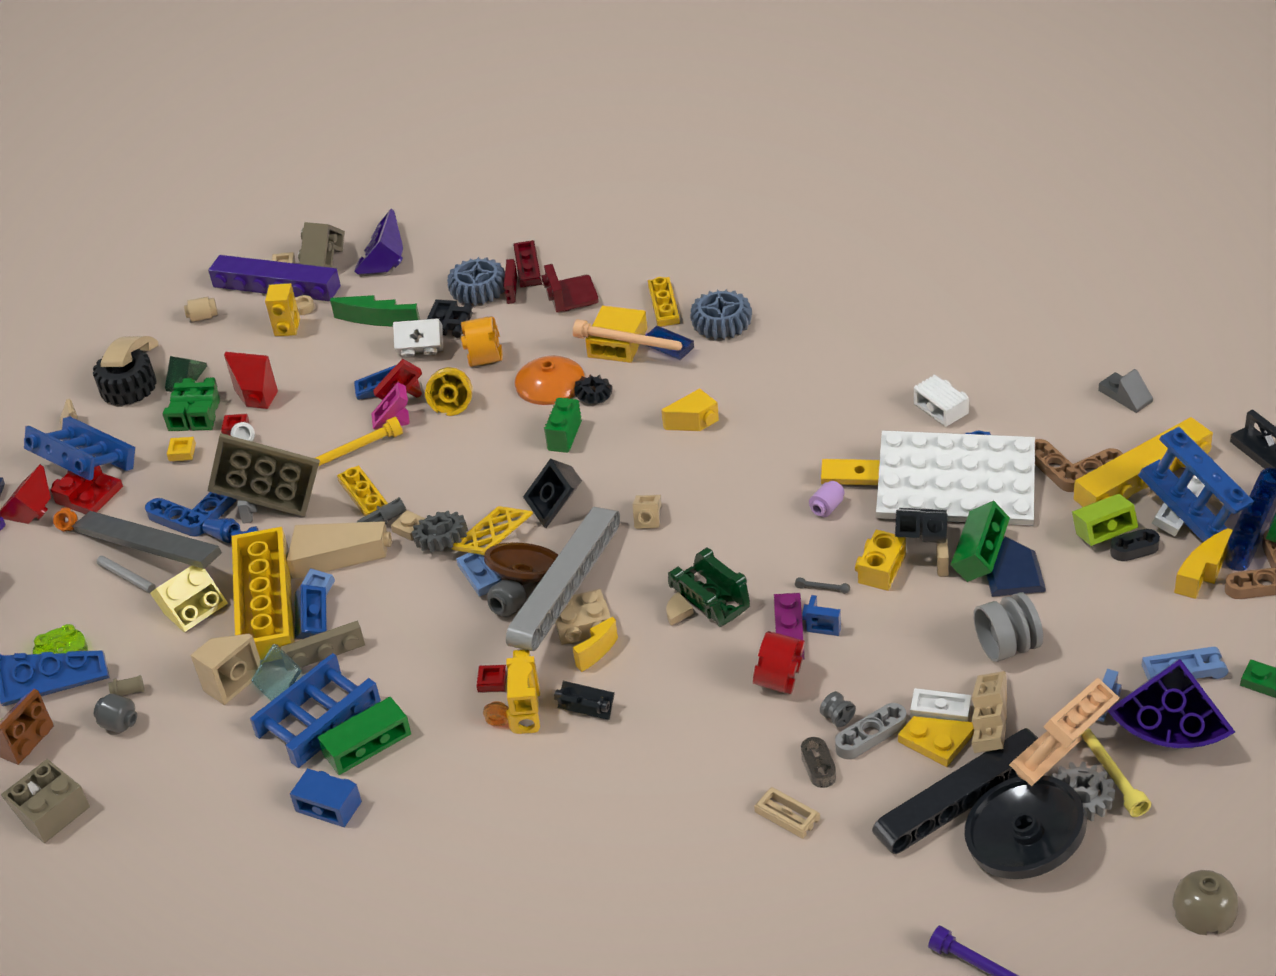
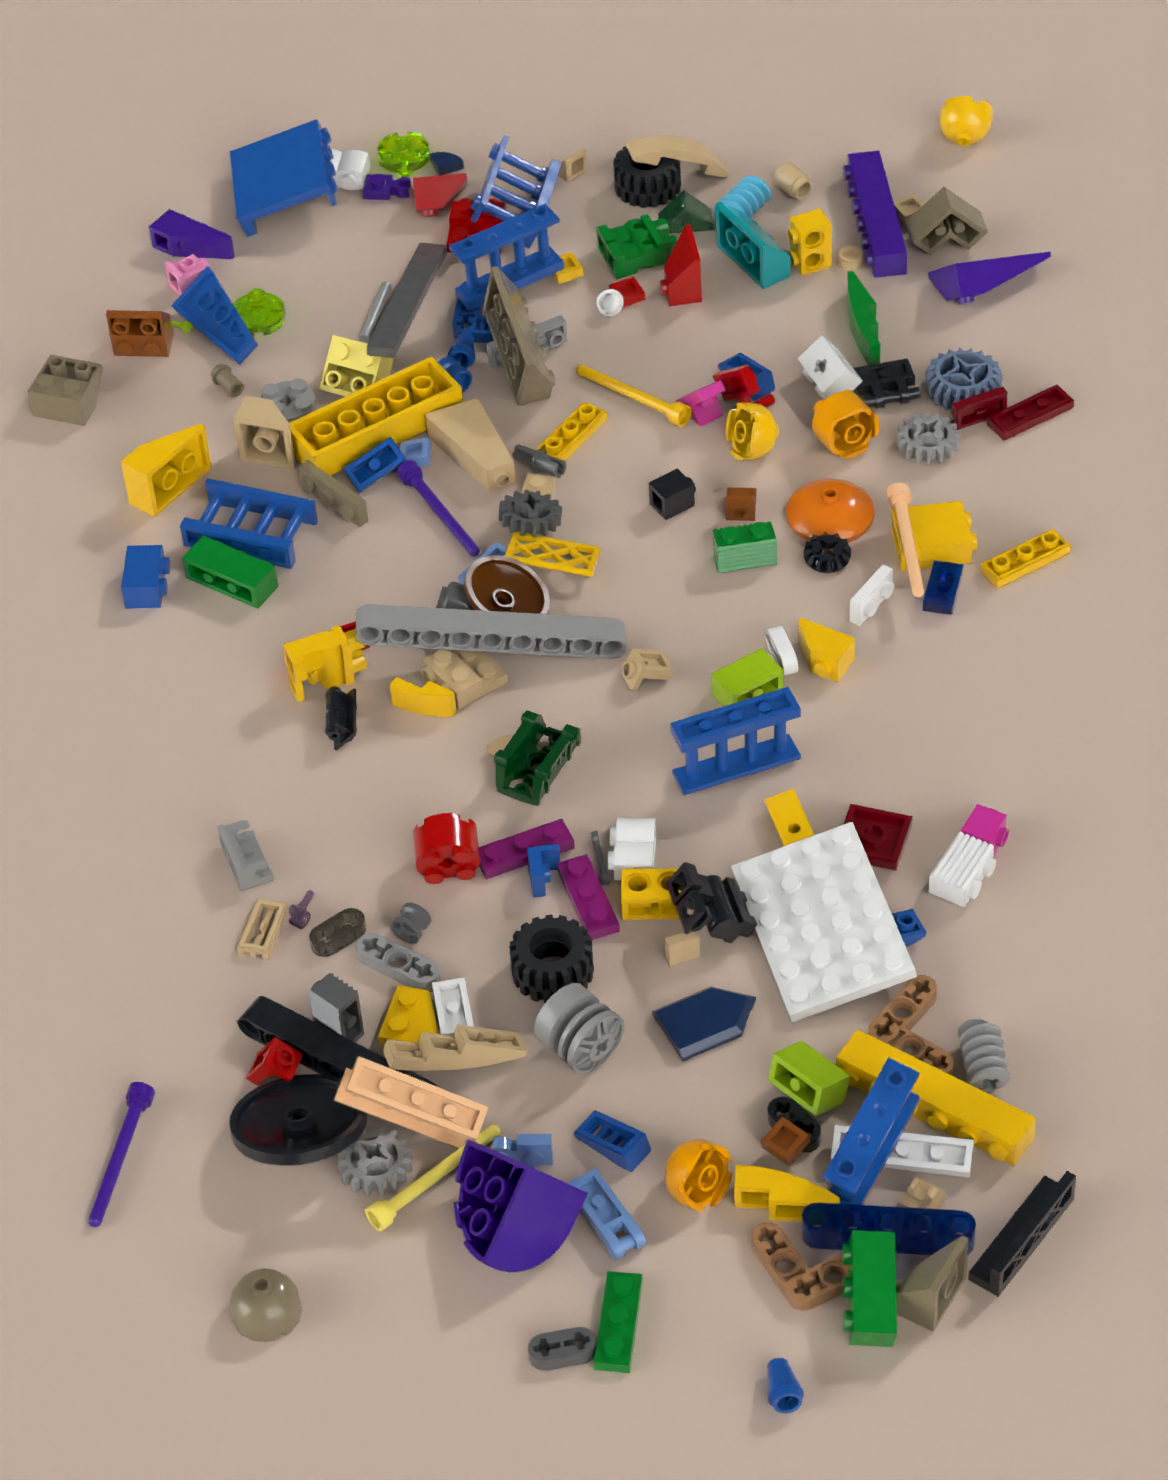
camera: 65 degrees right, 5 degrees up
(59, 519) = (424, 232): orange plate -> none
(115, 713) = (186, 385): dark grey head -> none
(163, 461) = (524, 269): none -> blue fence
(175, 648) = (294, 392): none -> light grey plate
(202, 337) = (747, 195): none -> medium azure piece
(215, 750) = (165, 468): none -> yellow slope
(225, 211) = (965, 120): none -> yellow cylinder
(263, 338) = (750, 247): none -> teal slope
(276, 673) = (281, 473): clear light blue piece -> none
(339, 593) = (412, 476): none -> dark purple piece
(477, 450) = (672, 494): none -> black brick
(511, 420) = (740, 504): none -> dark orange bracket
(520, 311) = (927, 438): none -> light grey gear
(551, 490) = (637, 580): black slope -> none
(569, 292) = (987, 464): dark red bracket -> none
(654, 376) = (872, 593): none -> white plate
(677, 434) = (781, 649): none -> white beam
(698, 459) = (746, 678): none -> lime brick
(701, 807) = (244, 855): none -> light grey hinge
(721, 314) = (1019, 615): sand blue gear -> none
(771, 467) = (729, 722): none -> blue fence
(785, 784) = (300, 916): none -> clear purple hand
(826, 498) = (733, 815): lavender brick -> none
(829, 559) = (633, 844): none -> white brick
(861, 600) = (588, 896): none -> magenta plate
(869, 435) = (881, 834): none -> dark red plate
(907, 377) = (987, 826): none -> dark pink brick
(921, 767) = (337, 1007): none -> dark grey brick
(925, 646) = (550, 939): none -> black tyre
(948, 834) = (274, 1059): none -> red bracket
(980, 541) = (717, 970): green brick -> none
(1118, 431) = (983, 1055): none -> light grey piece
(1120, 629) = (628, 1153): none -> blue slope
(1127, 390) = (1080, 1050): dark grey slope -> none
(1158, 547) = (785, 1141): none -> dark orange tile
(1170, 601) = (698, 1173): none -> light orange cylinder

